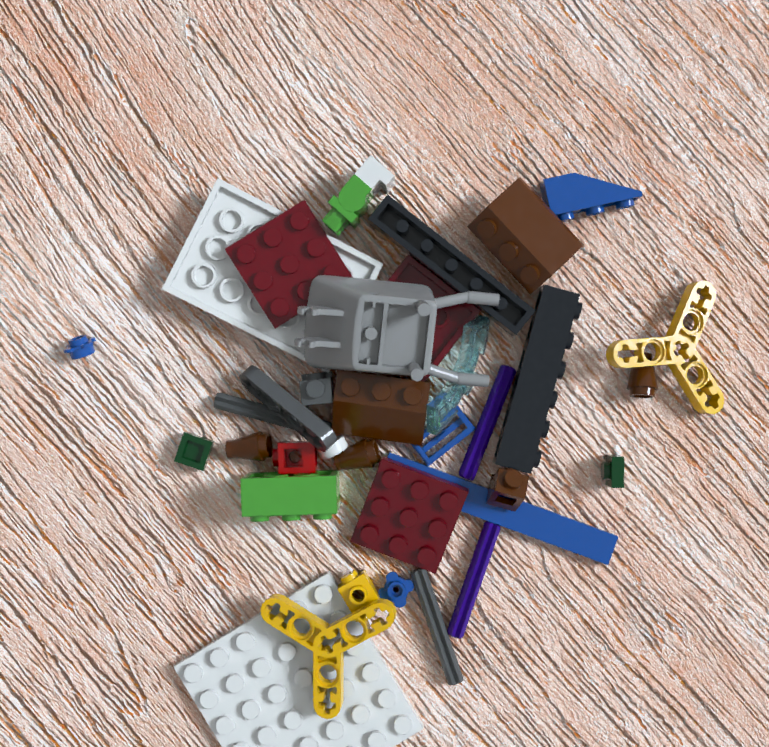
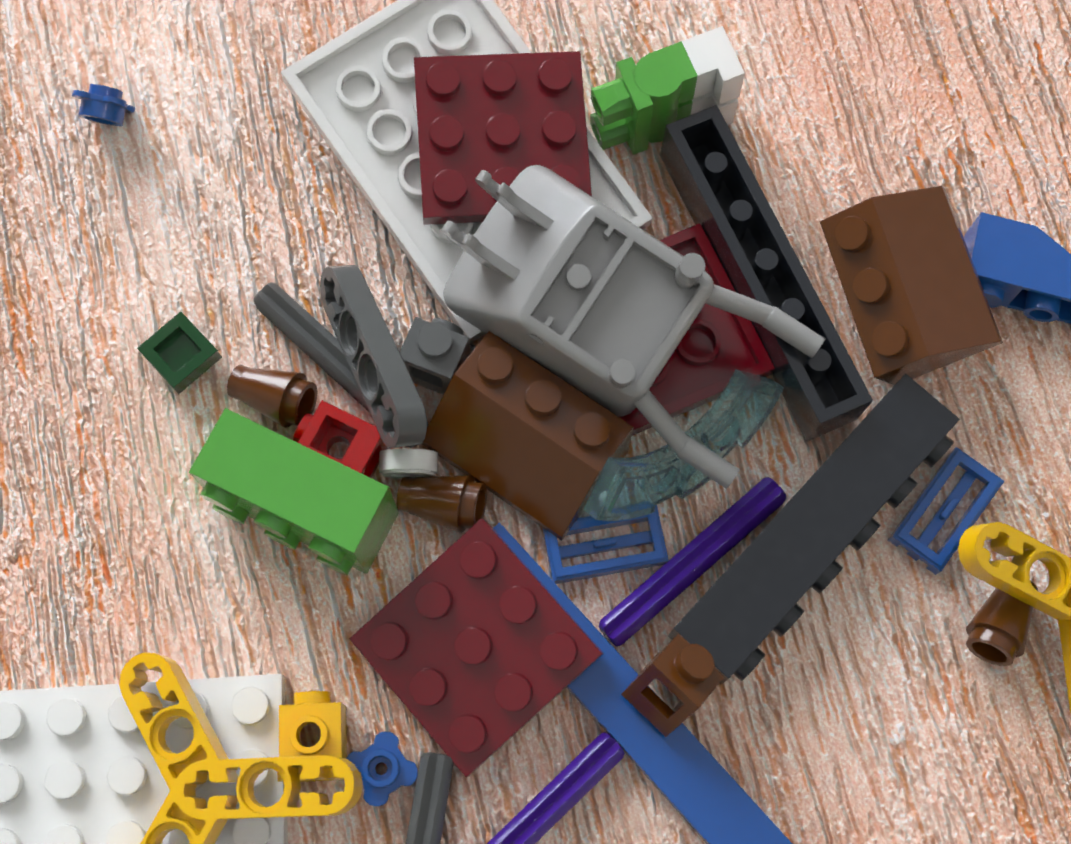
camera: 25 degrees right, 15 degrees down
(592, 335) = (919, 547): none -> blue tile
(613, 471) = (878, 758): dark green plate -> none

